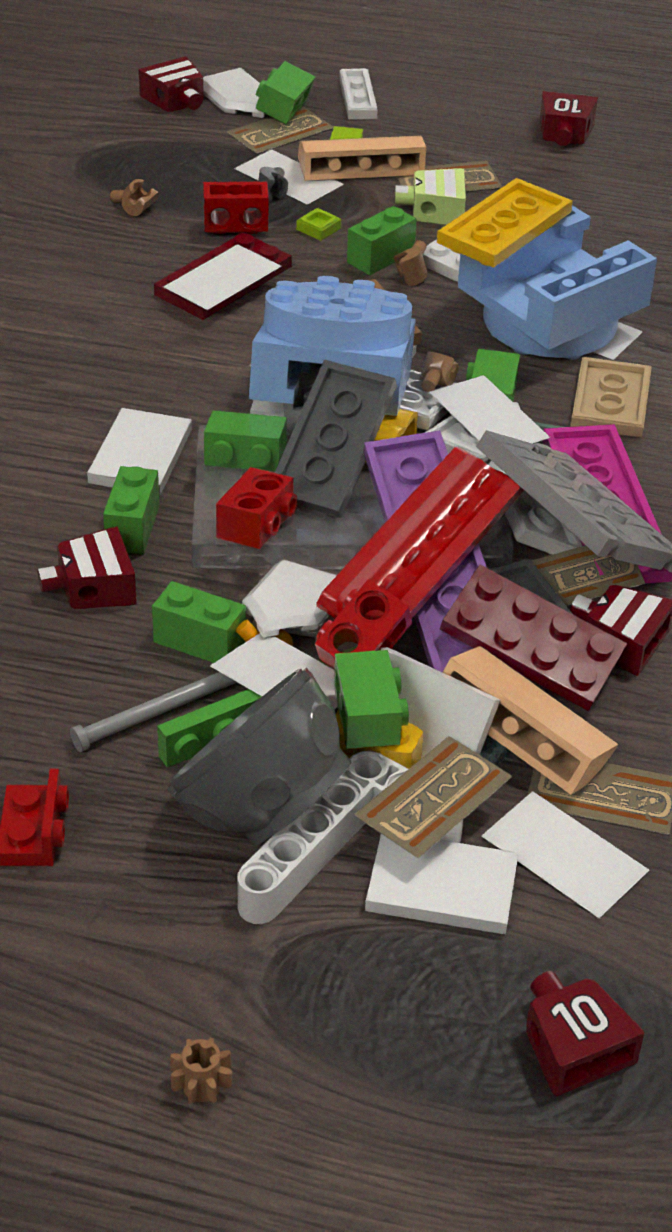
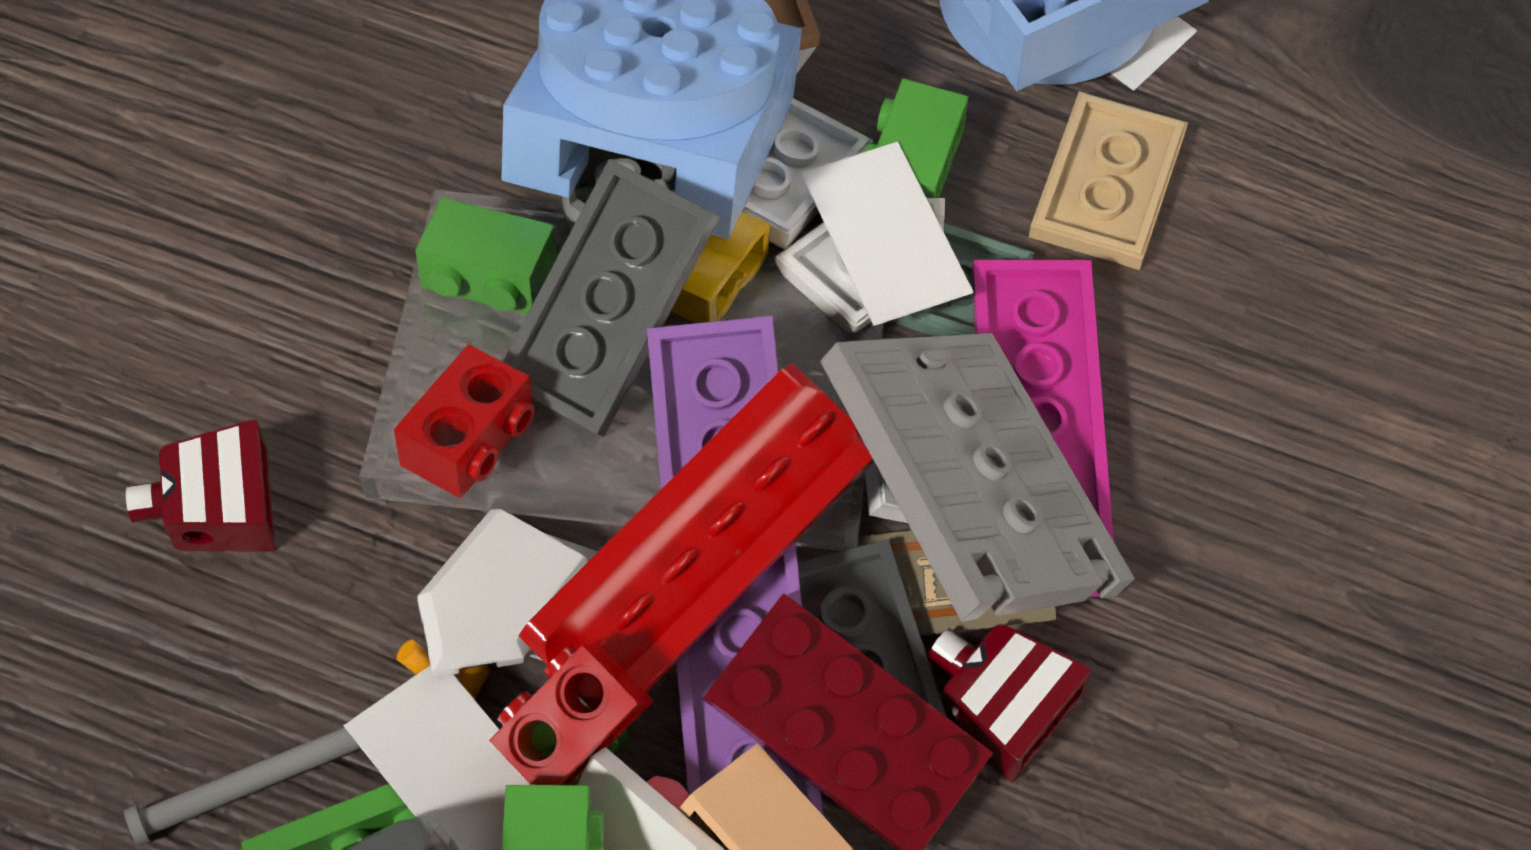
camera: 10 degrees right, 20 degrees up
(133, 506) = (293, 371): bright green brick -> none
(140, 441) = (336, 233): white tile -> none
(197, 622) = (348, 622): bright green brick -> none
(438, 370) = (828, 120): medium nougat piece -> none

